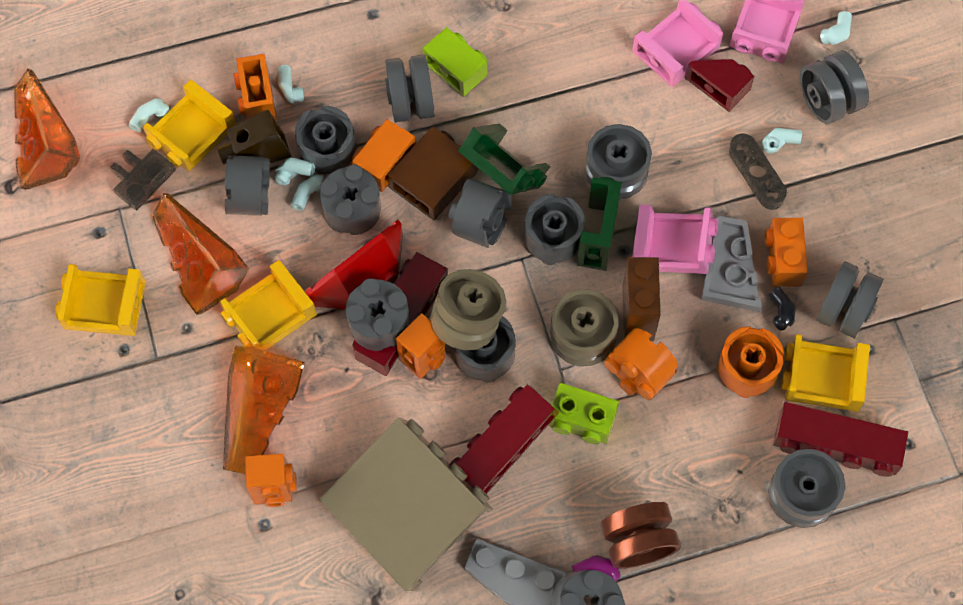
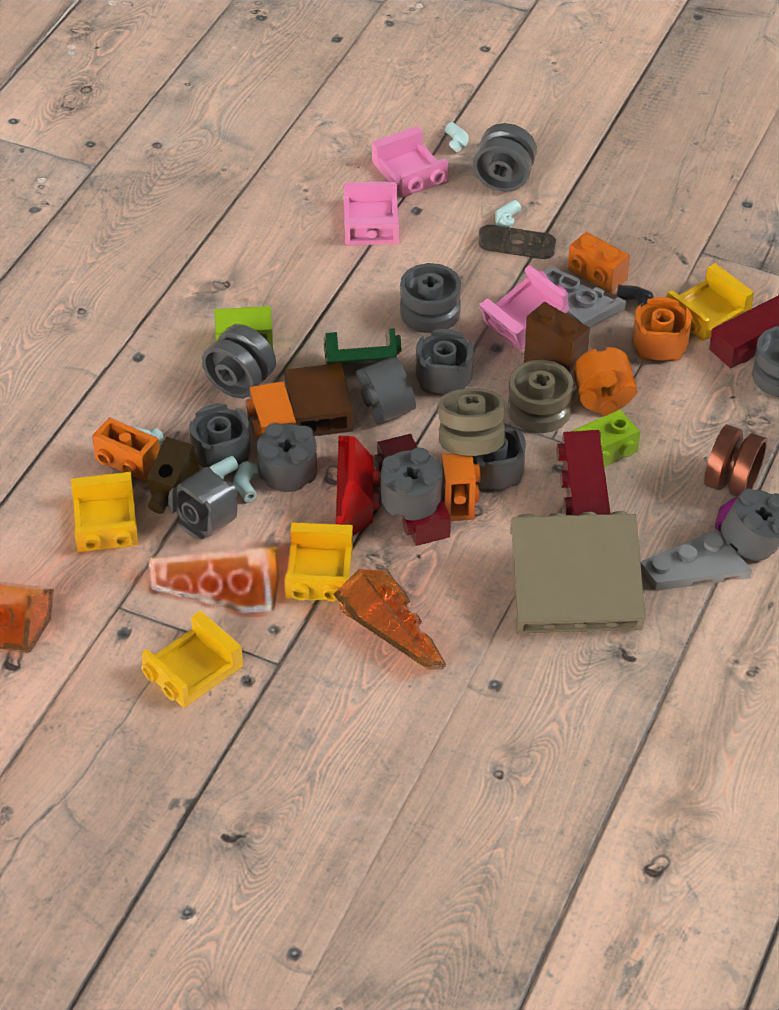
camera: 50 degrees left, 20 degrees down
(143, 178) = (115, 569): clear smoke hinge -> none
(145, 111) = (55, 533): light aqua arm -> none
(270, 479) = (470, 640): orange brick -> none
(595, 247) = (476, 324): dark green panel -> none
(721, 80) = (427, 212): dark red slope -> none
(853, 301) = (671, 250): dark grey wheel -> none

